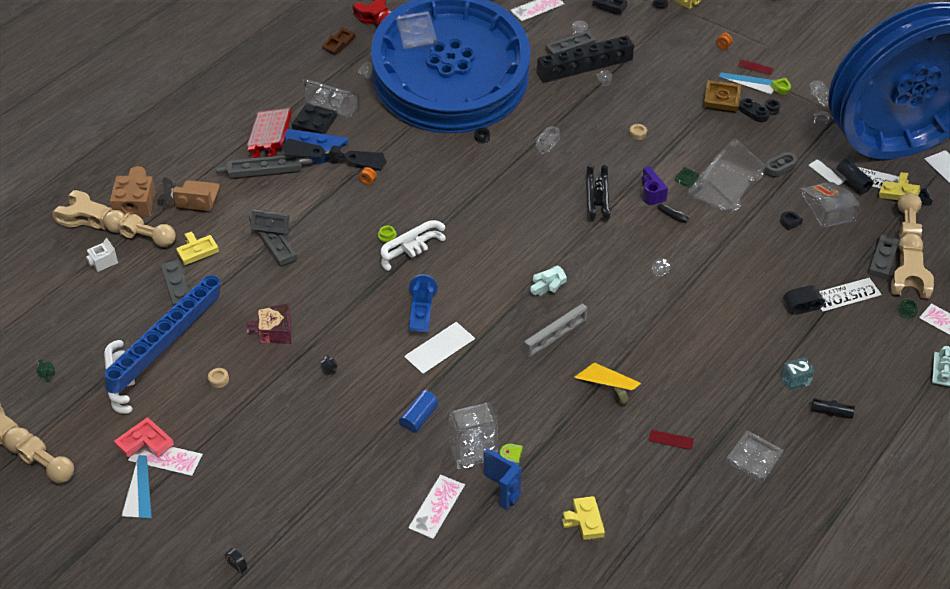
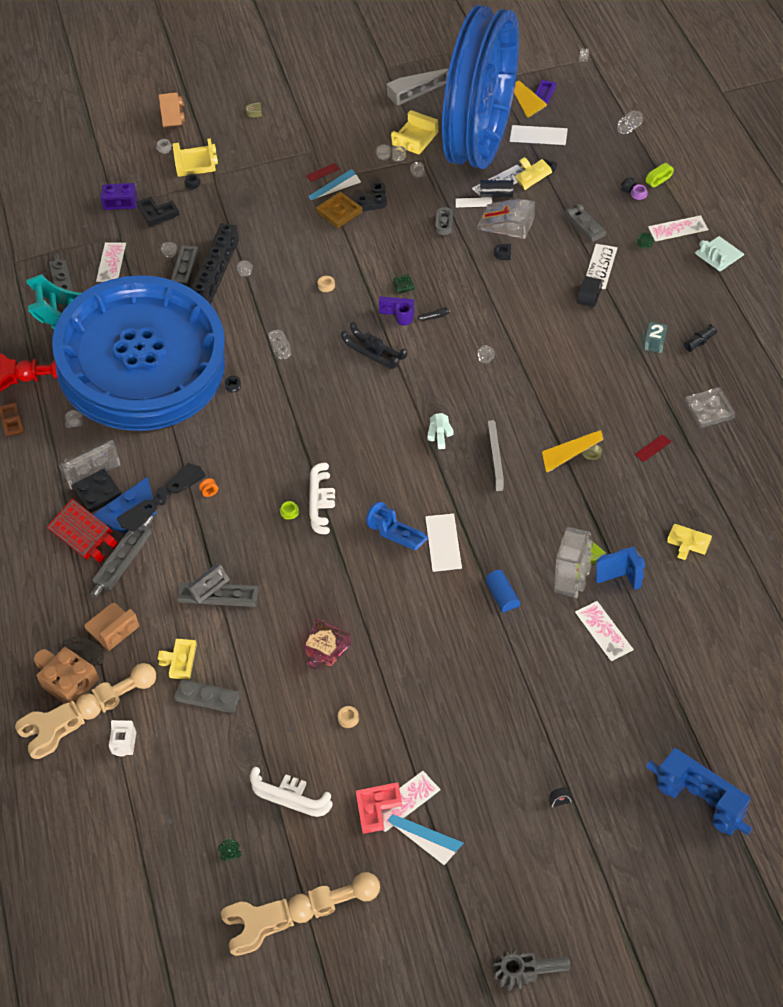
camera: 50 degrees left, 5 degrees up
(161, 334) = (275, 731): blue beam -> none
(329, 364) = (404, 626): black plate -> none
(416, 30) = (94, 348): clear plate -> none
(727, 177) = (427, 261): clear windscreen -> none
(728, 41) = (279, 176): orange bush -> none
(781, 86) = (361, 170): lime tile -> none
(911, 267) = (605, 209): tan piece -> none

